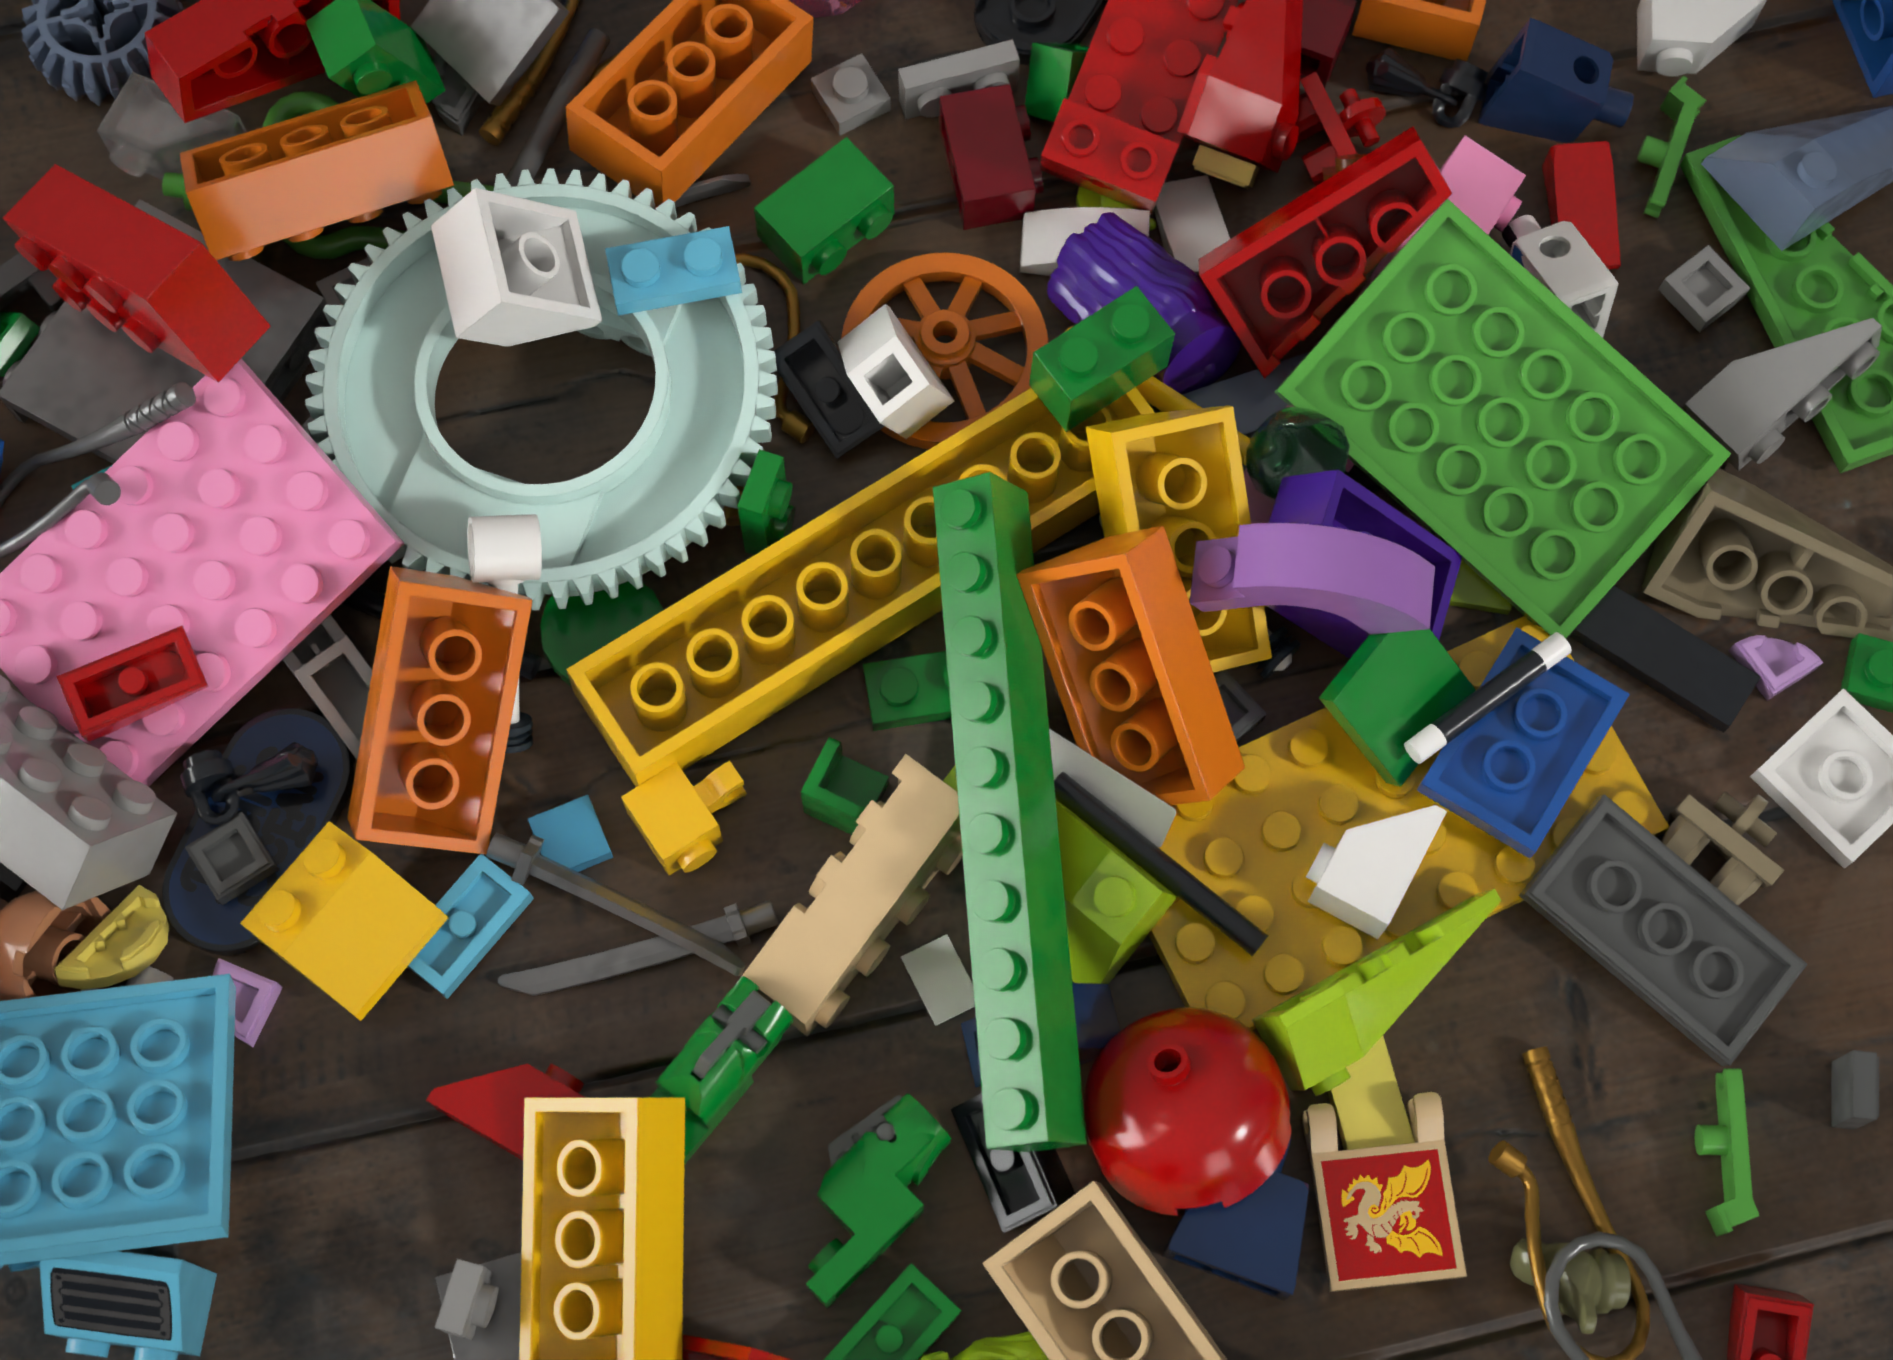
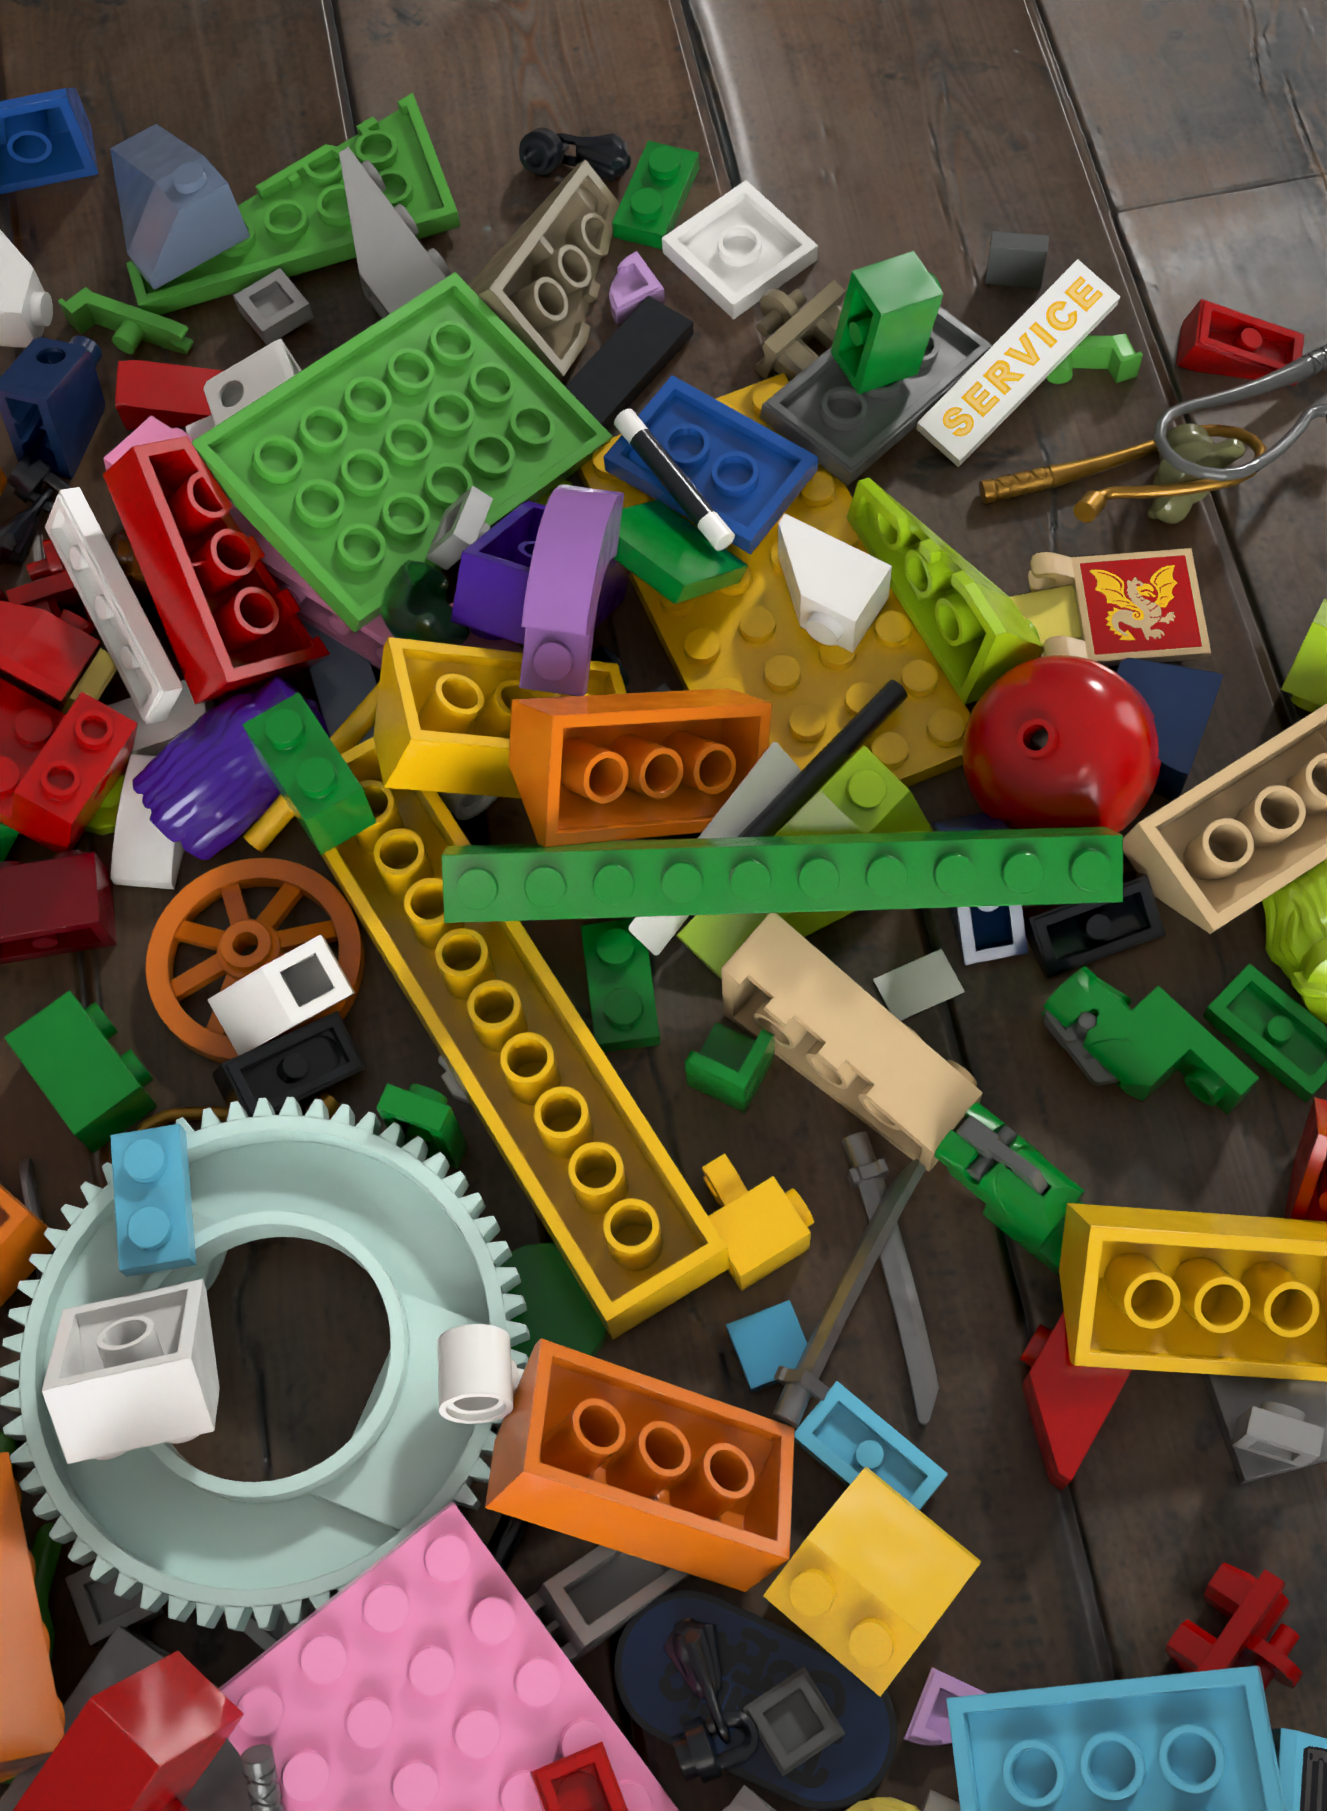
camera: 80 degrees left, 5 degrees down
(282, 1268) = (1253, 1613): none -> red hips
(1296, 165) = (113, 606): none -> white tile
(1392, 479) = (460, 527): none -> light grey plate
(1701, 1086) = (1018, 363): none -> white tile
(1707, 918) = (886, 321): none -> green brick

